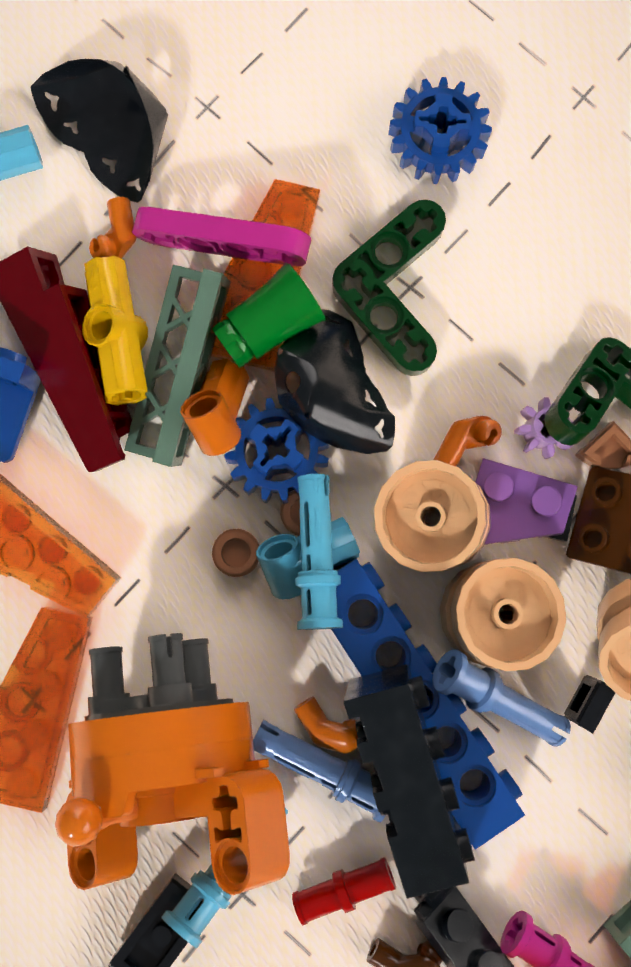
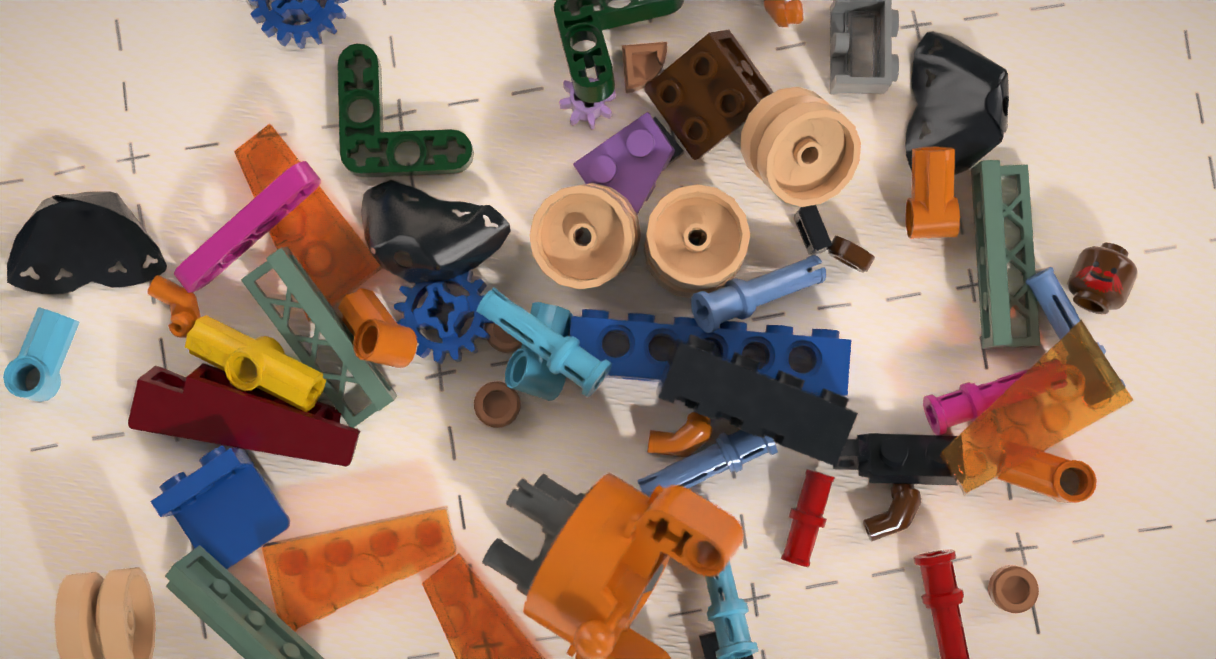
camera: 50 degrees left, 0 degrees up
(269, 317) = (340, 239): green plant -> none
(468, 434) = (546, 162): orange arm -> none
(595, 753) = (850, 254): none -> reddish brown tile

